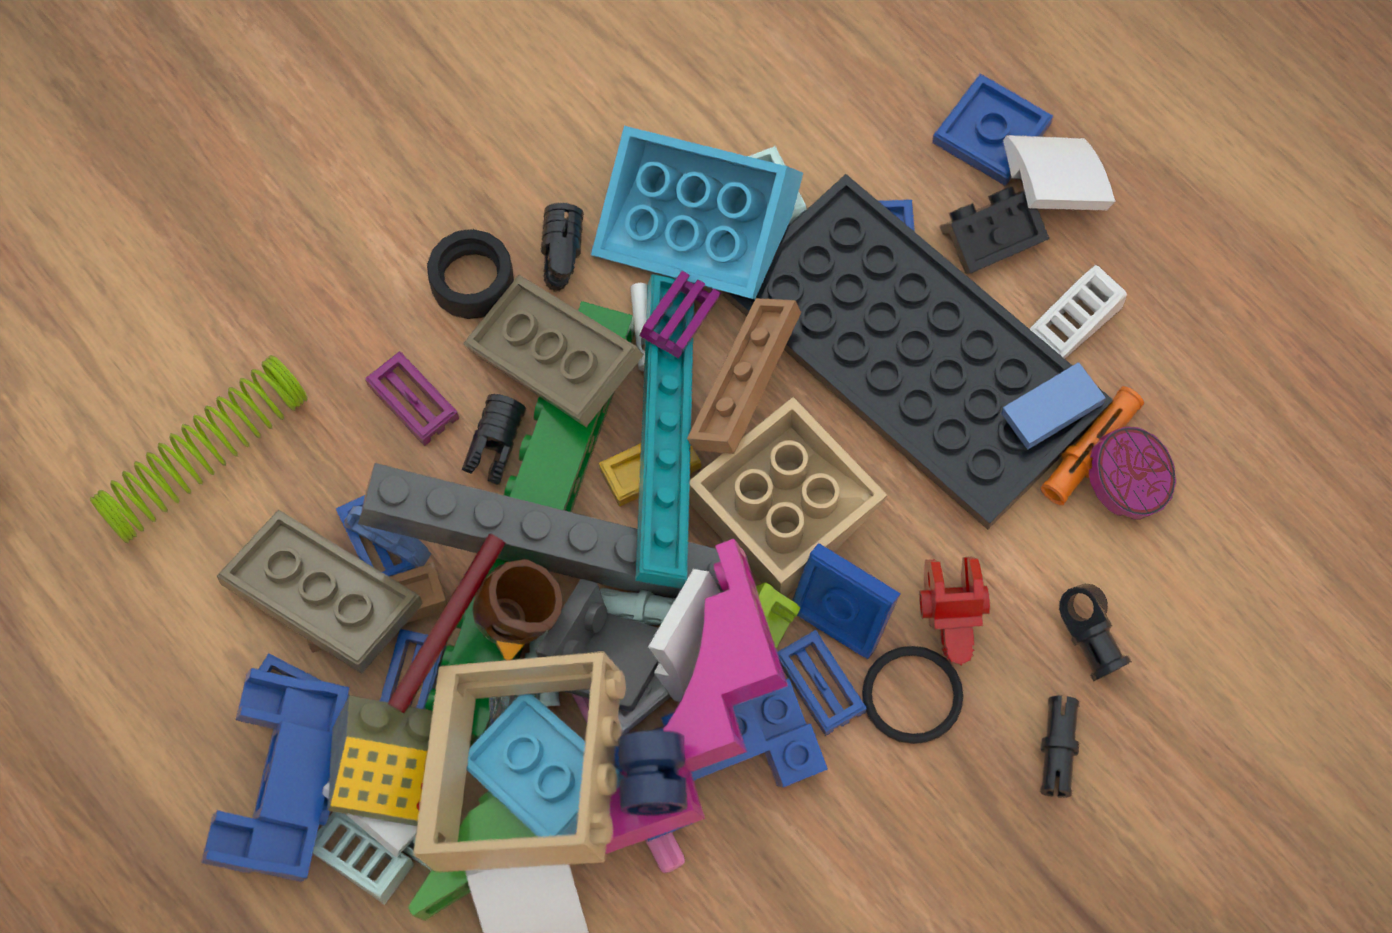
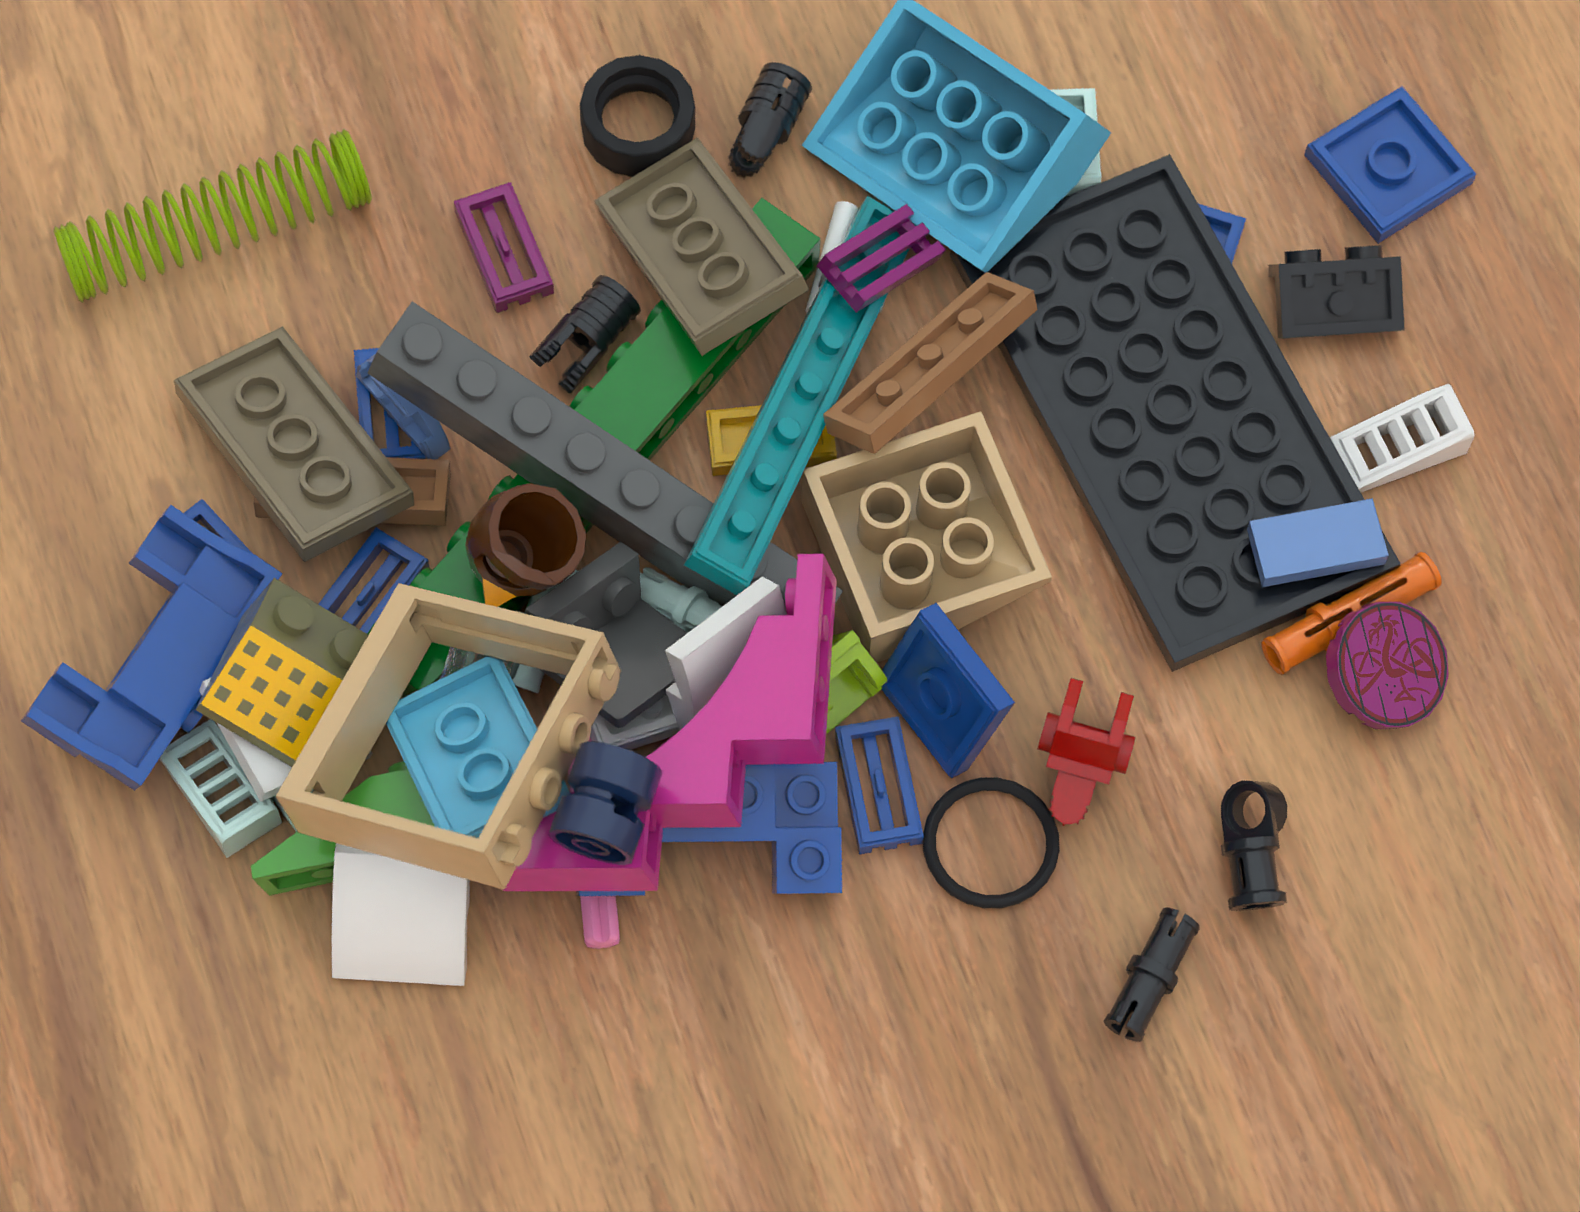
camera: 15 degrees right, 0 degrees up
(446, 623) = (427, 532): dark red bar -> none
(1059, 173) = (1450, 249): white slope -> none

